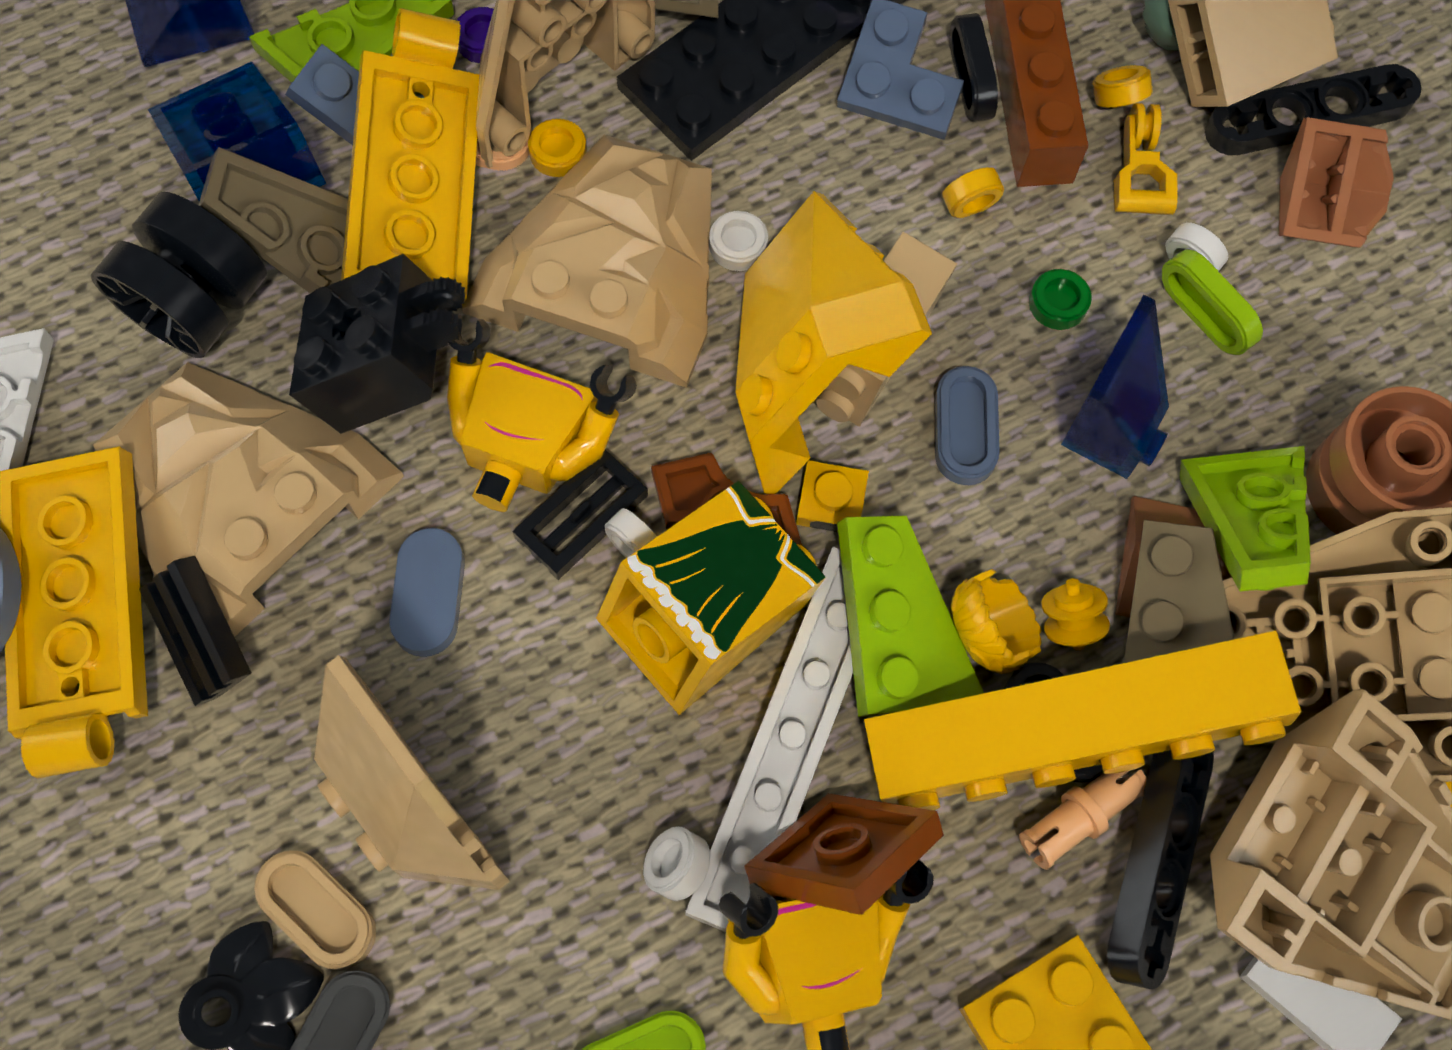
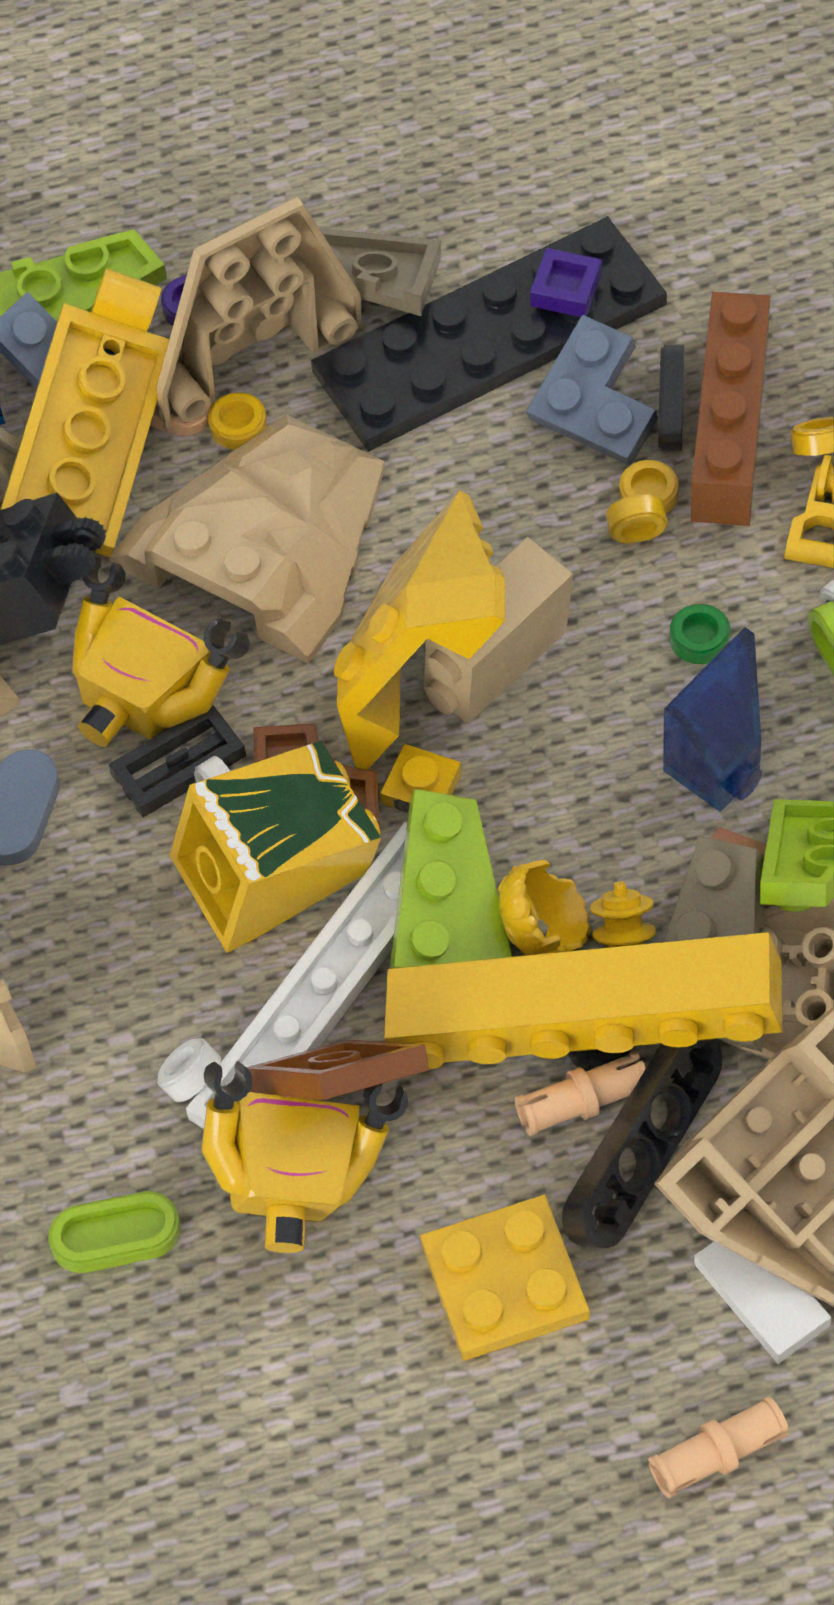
camera: 20 degrees right, 10 degrees down
(737, 240) = (391, 531): white tile -> none
(966, 425) = (571, 737): sand blue tile -> none
(969, 152) = (650, 478): none -> yellow tile

